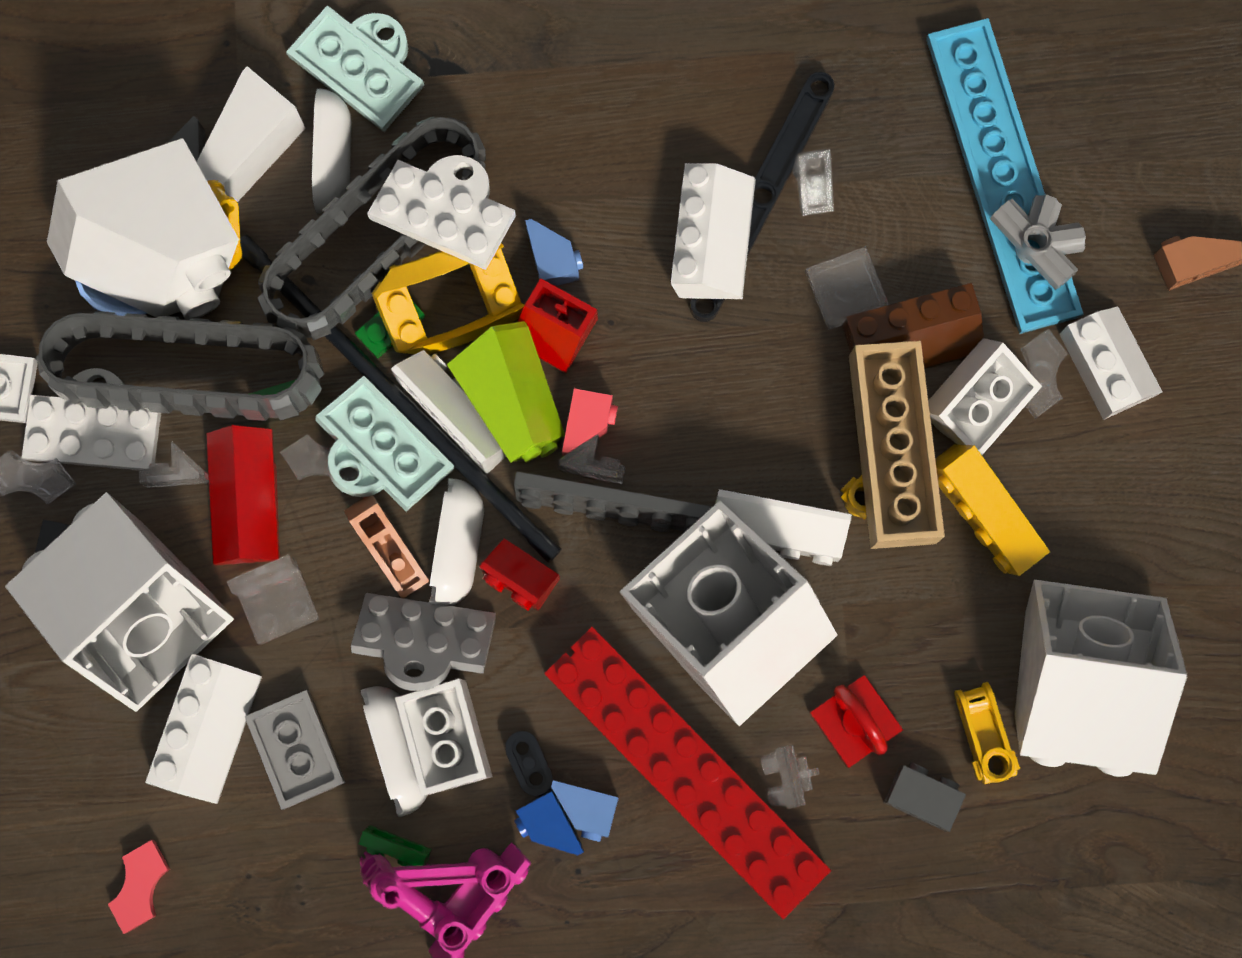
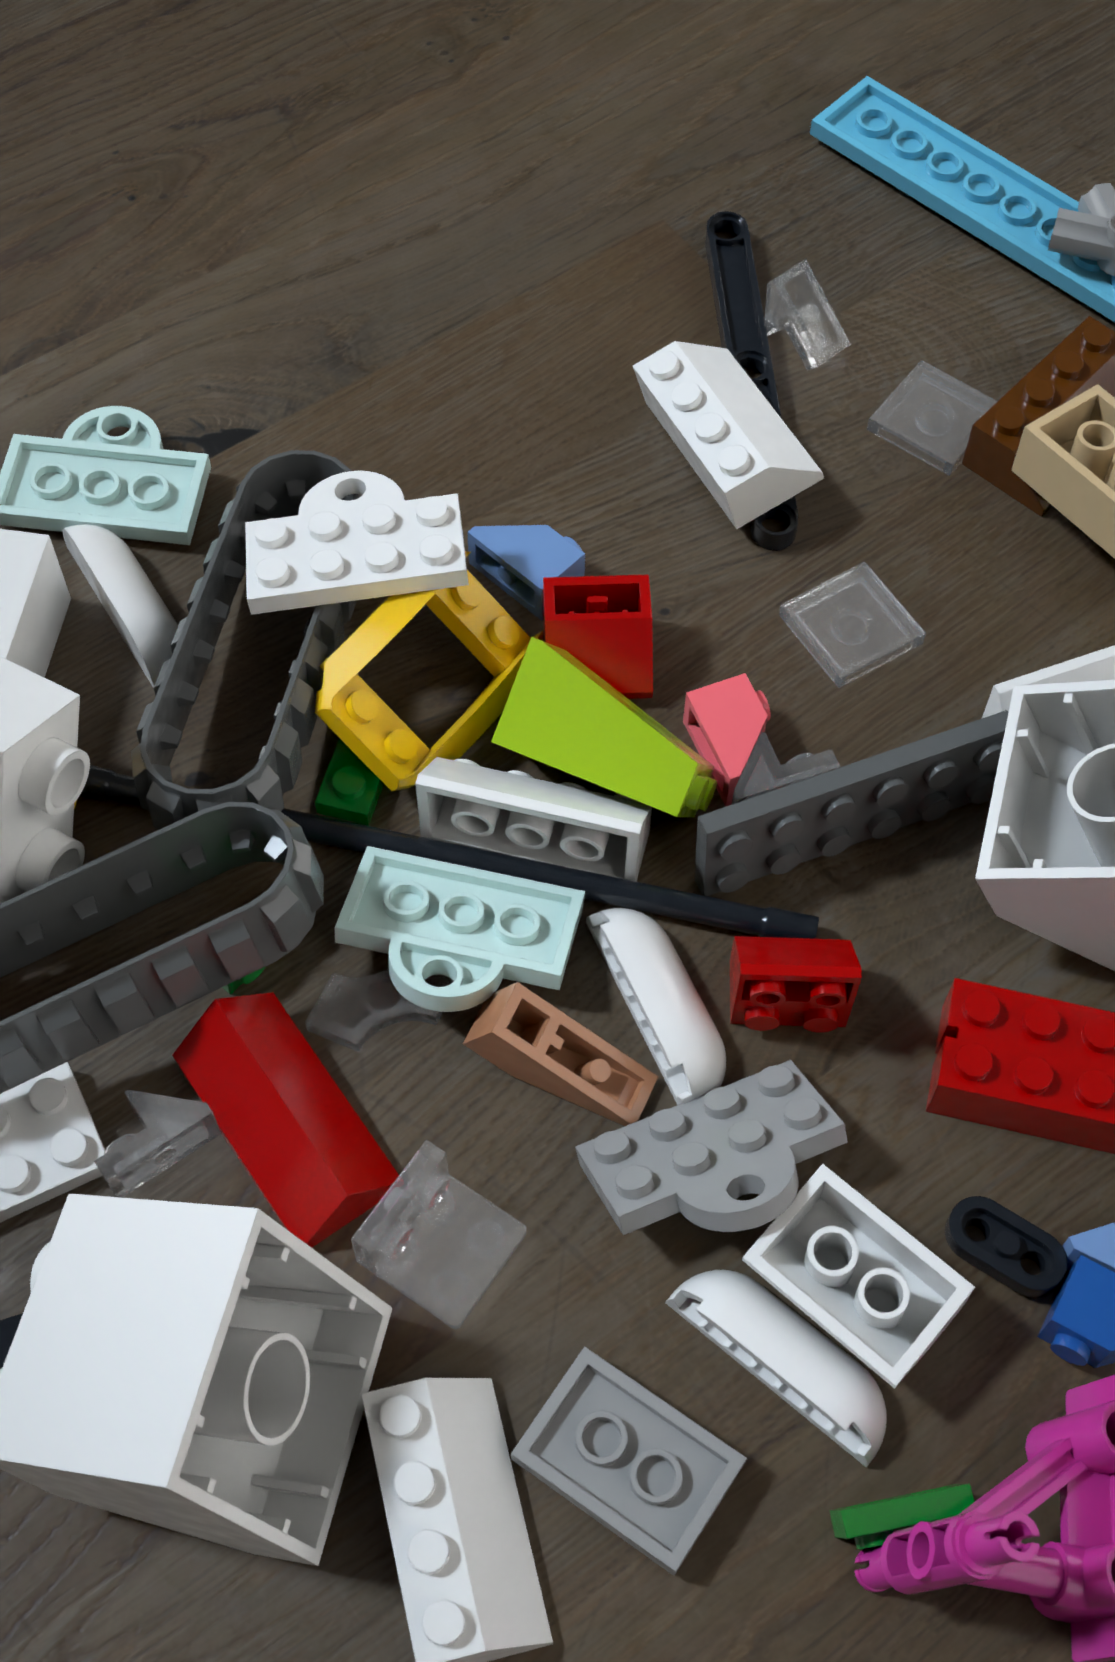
camera: 35 degrees left, 20 degrees down
(702, 392) = (851, 624): none -> clear tile

